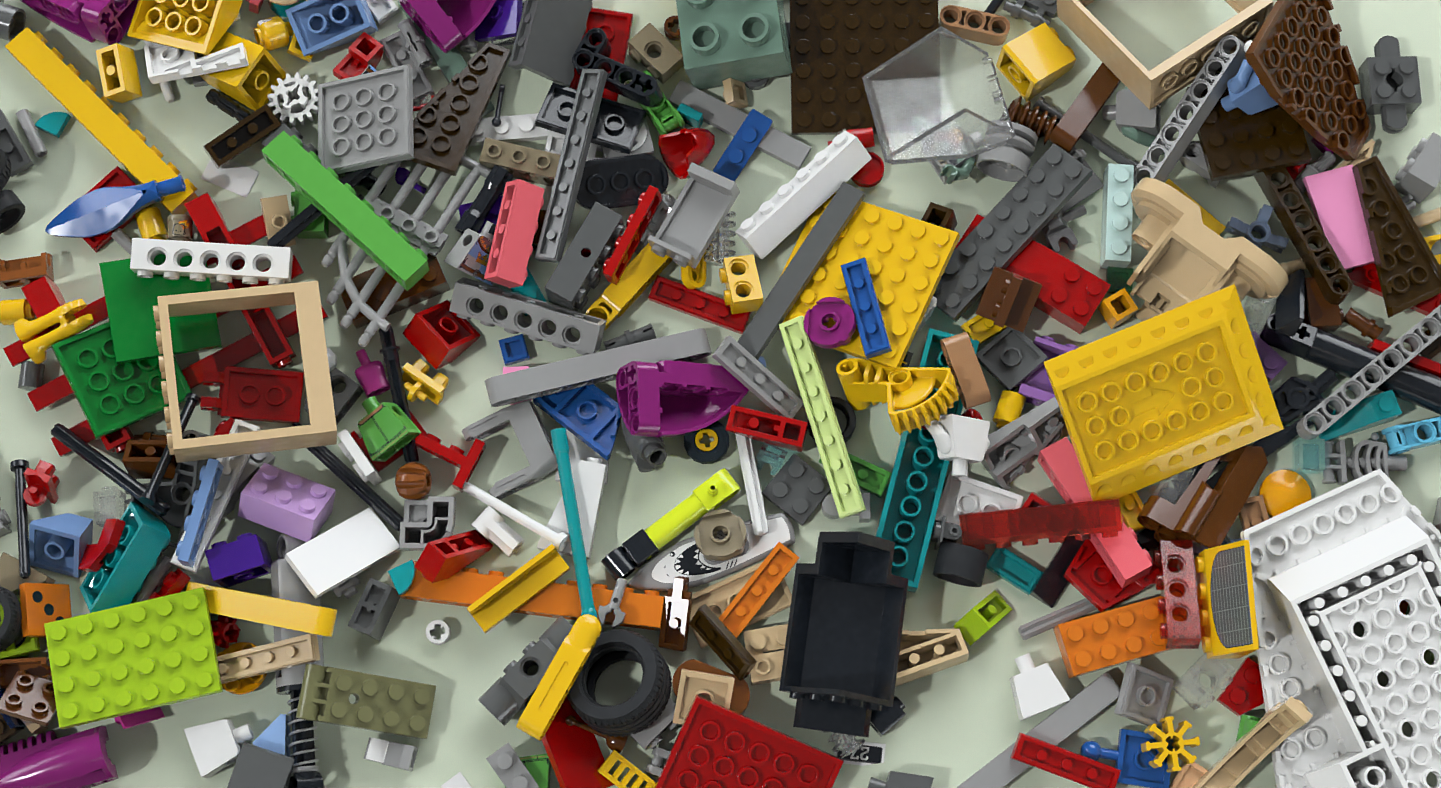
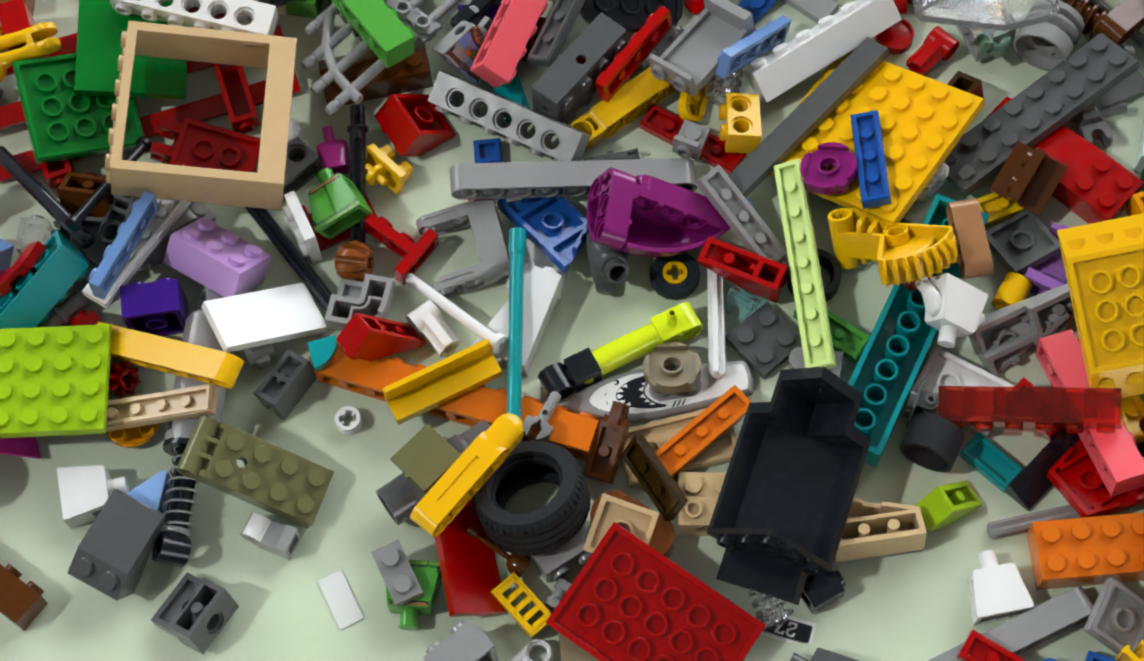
camera: 15 degrees right, 10 degrees down
(518, 666) = (425, 458): none -> olive piece
(698, 308) = (690, 140): none -> light grey bracket
(740, 210) = (752, 46): none -> medium blue plate
(906, 178) = (936, 47): none -> red piece

